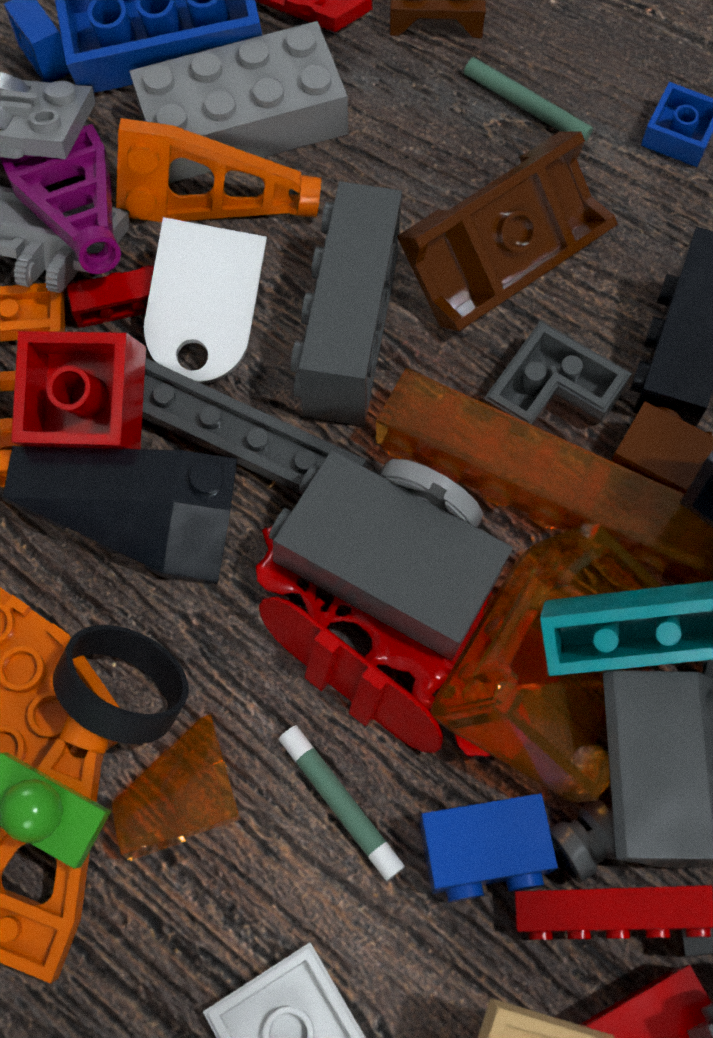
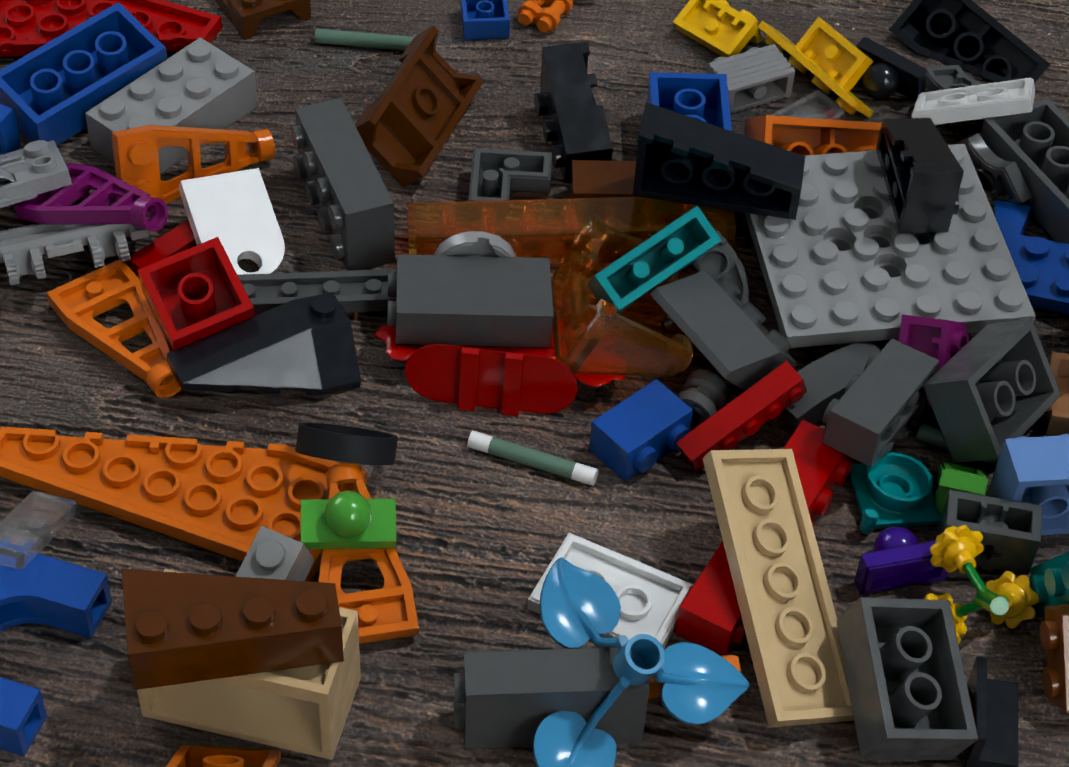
camera: 35 degrees left, 20 degrees down
(176, 795) = (425, 498): clear orange slope -> none

